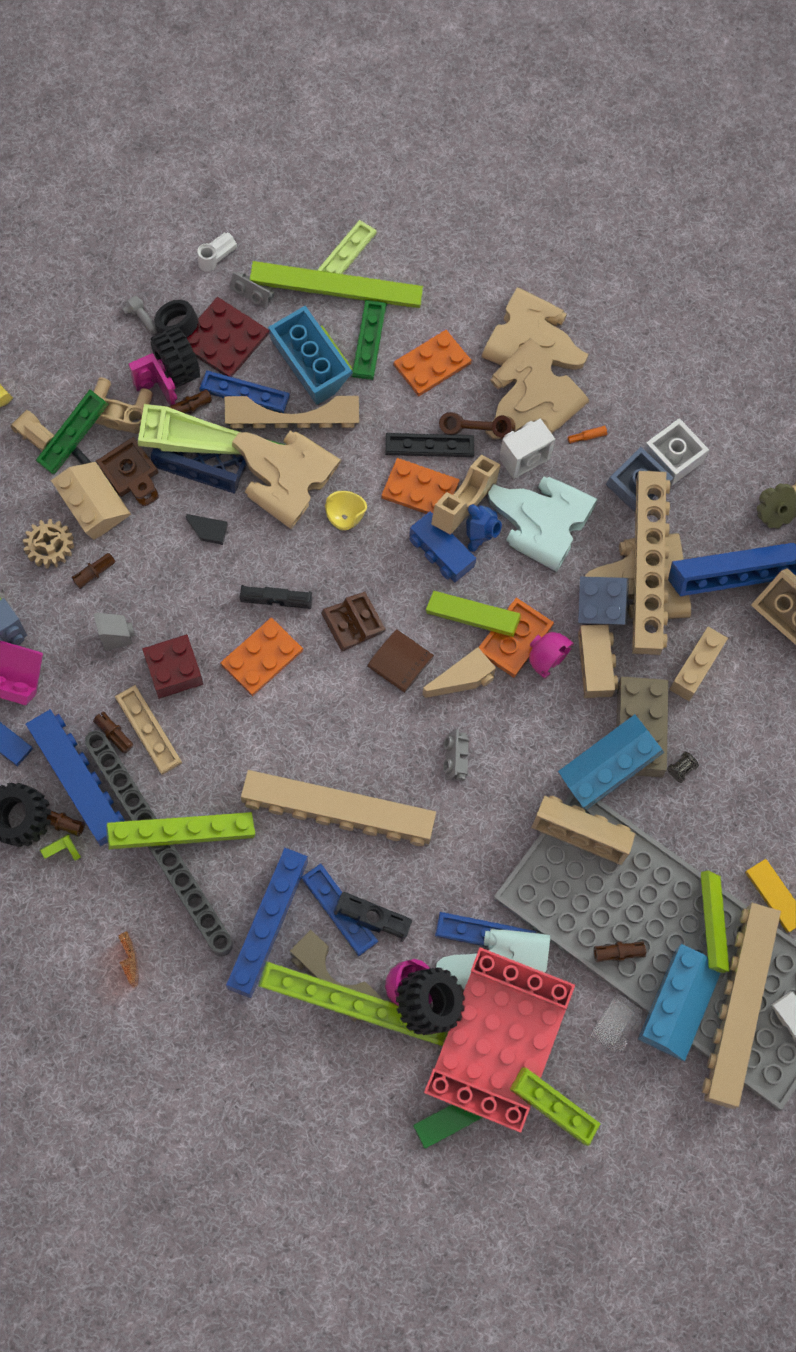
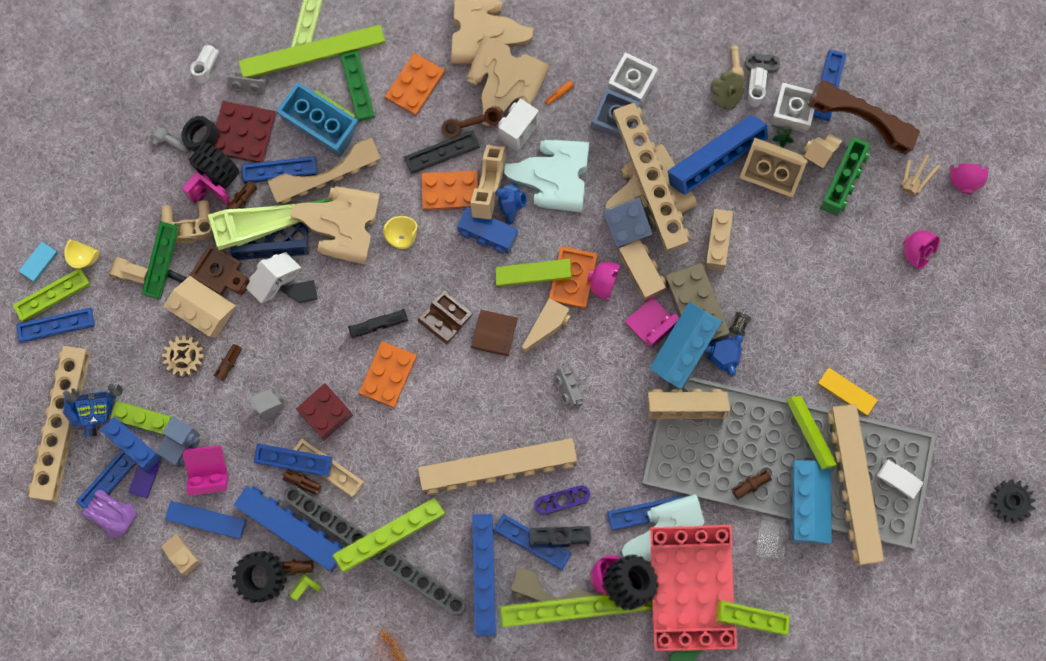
camera: 15 degrees left, 5 degrees up
(115, 704) = (293, 459): none -> blue tile
(183, 496) = (271, 275): none -> white brick
(389, 868) = (546, 498): none -> dark purple beam
(582, 723) = (651, 322): none -> dark pink bracket
(653, 792) = (726, 353): none -> blue rock

